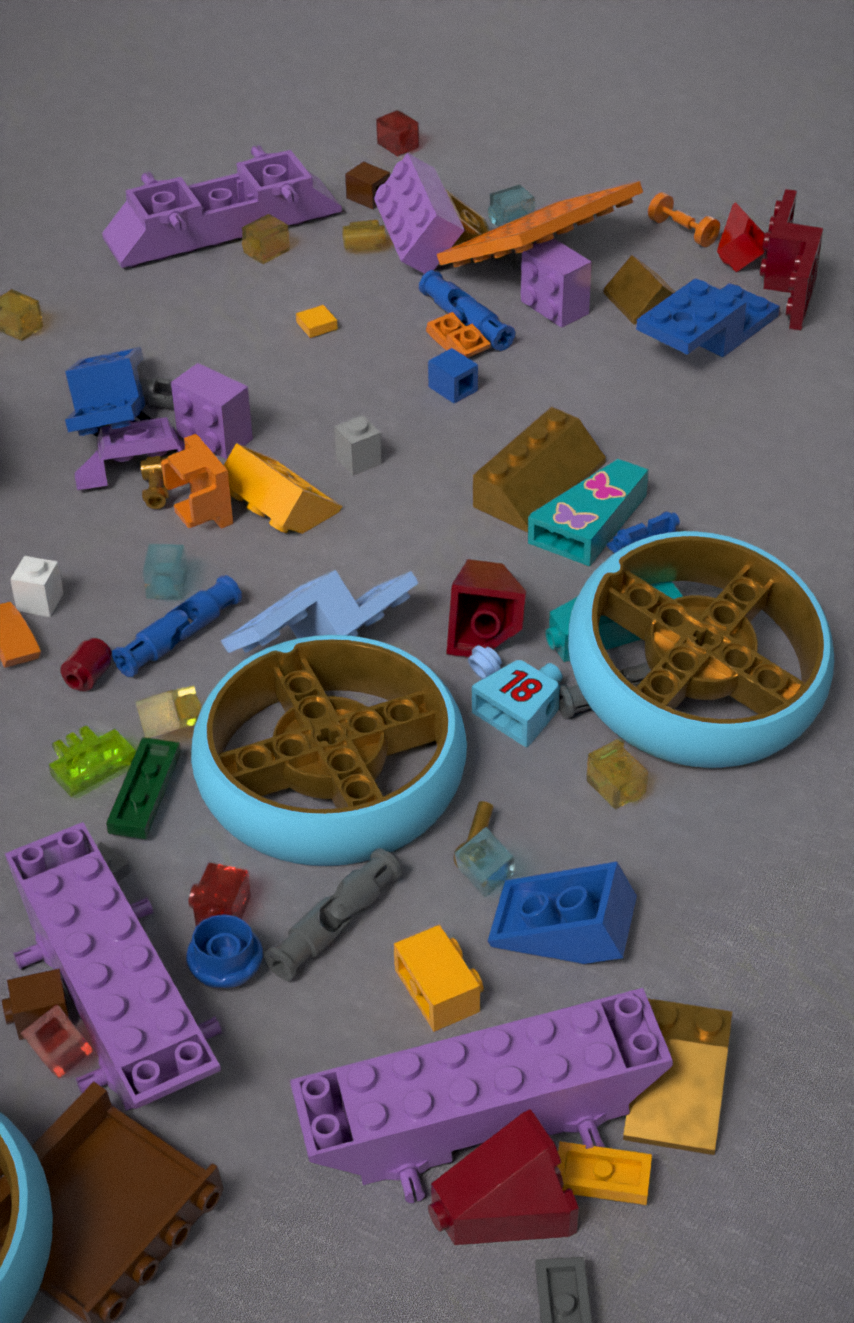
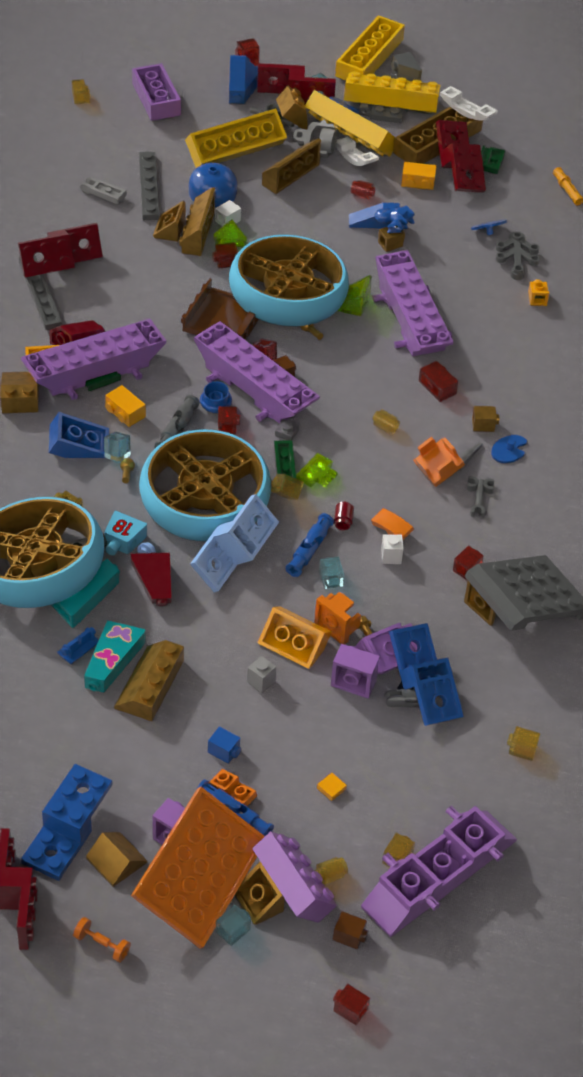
camera: 160 degrees right, 5 degrees up
(740, 240) = (53, 920): red slope -> none

